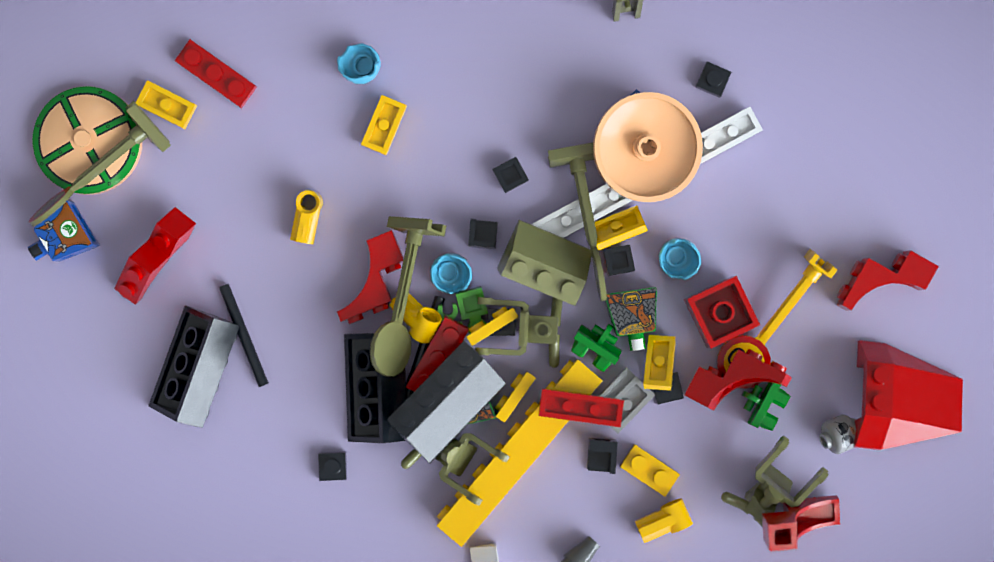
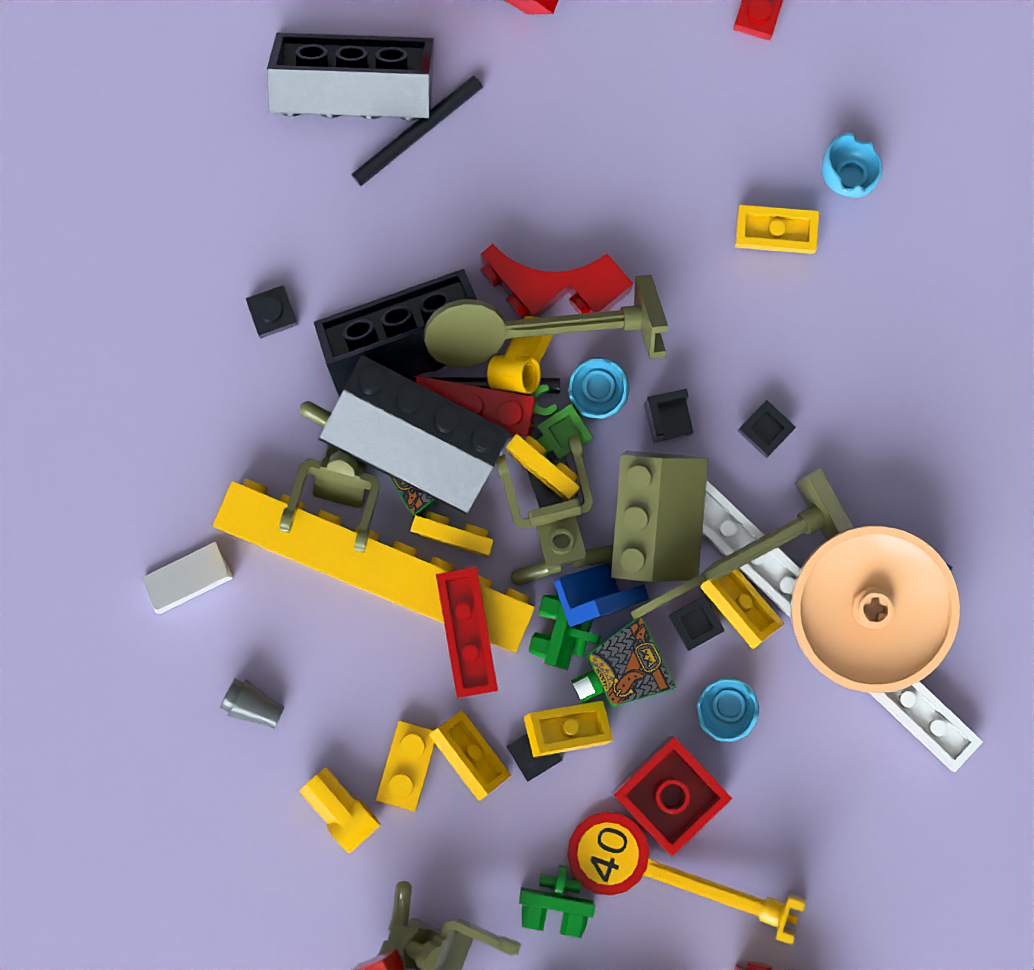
camera: 75 degrees right, 5 degrees down
(306, 220) = (606, 162): yellow piece -> none
(582, 320) = (595, 594): none -> blue panel
(602, 455) = (407, 688): black panel -> none
(632, 391) = (507, 706): light grey plate -> none
(656, 428) = (470, 755): none -> yellow plate
(710, 388) = (559, 817): red arch -> none
(713, 79) = (1002, 677): black plate -> none

